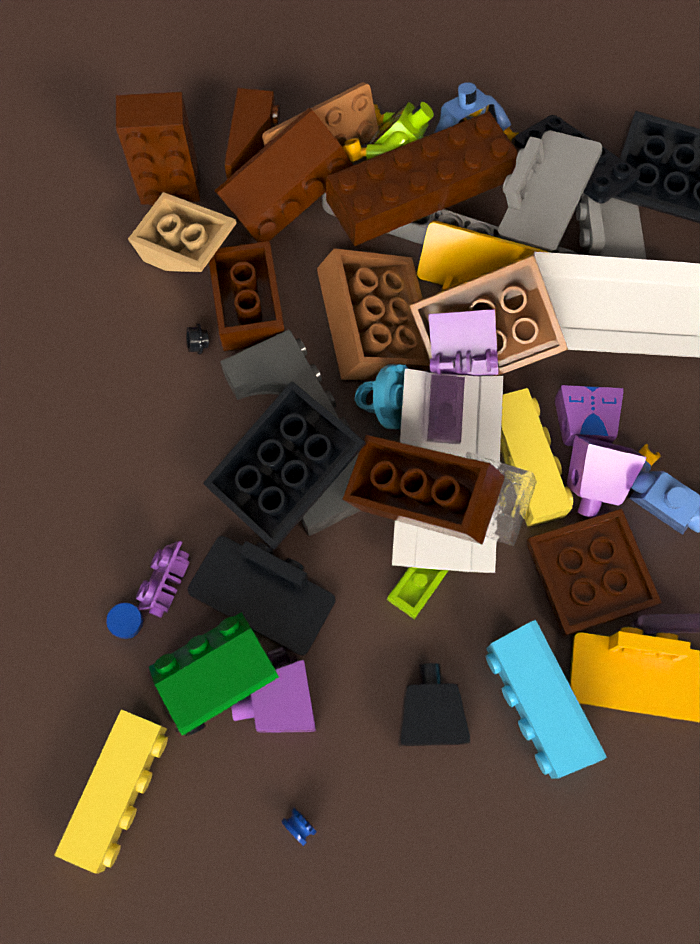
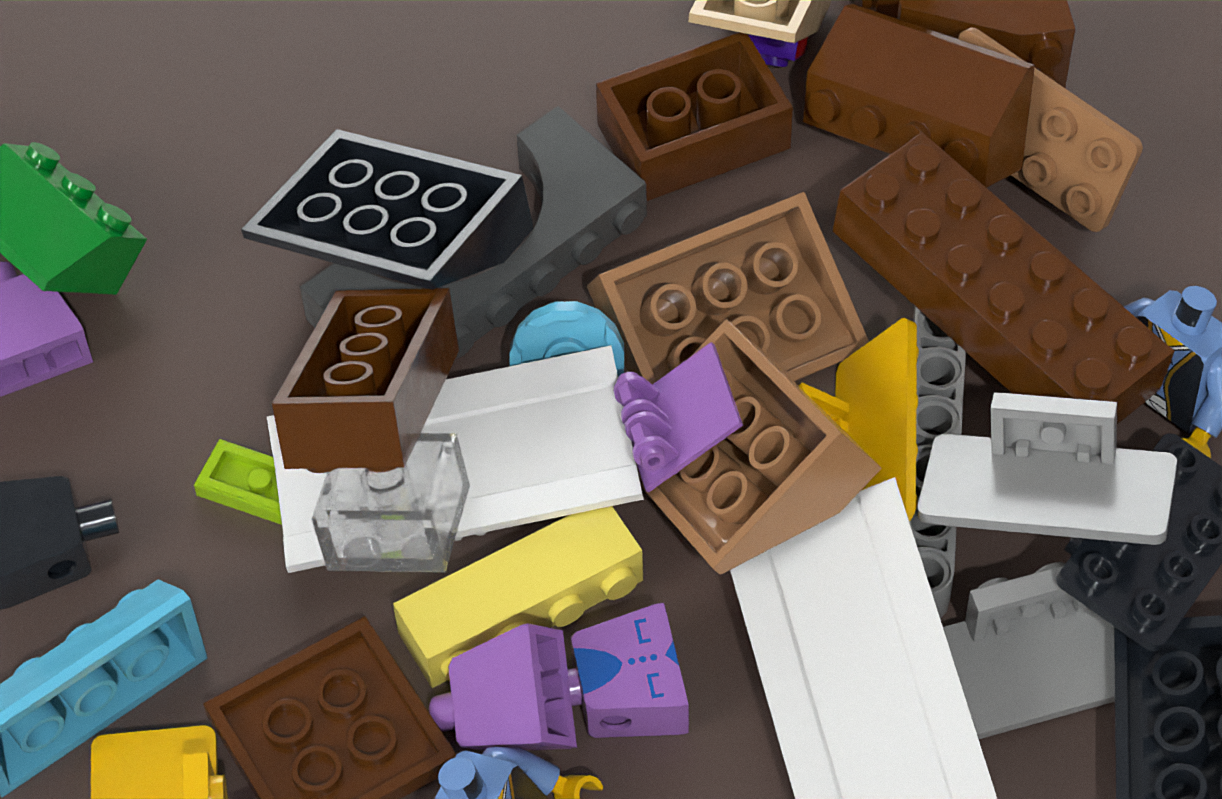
camera: 80 degrees right, 15 degrees down
(124, 620) = (114, 116): blue tile -> none
(164, 561) = (164, 127): medium lavender hinge -> none
(197, 339) = (597, 72): black plate -> none
(266, 590) = (186, 275): black bracket -> none
(280, 657) = (98, 322): piece -> none
(397, 130) = (1101, 245): lime torso -> none
(445, 409) = (554, 423): clear purple plate -> none

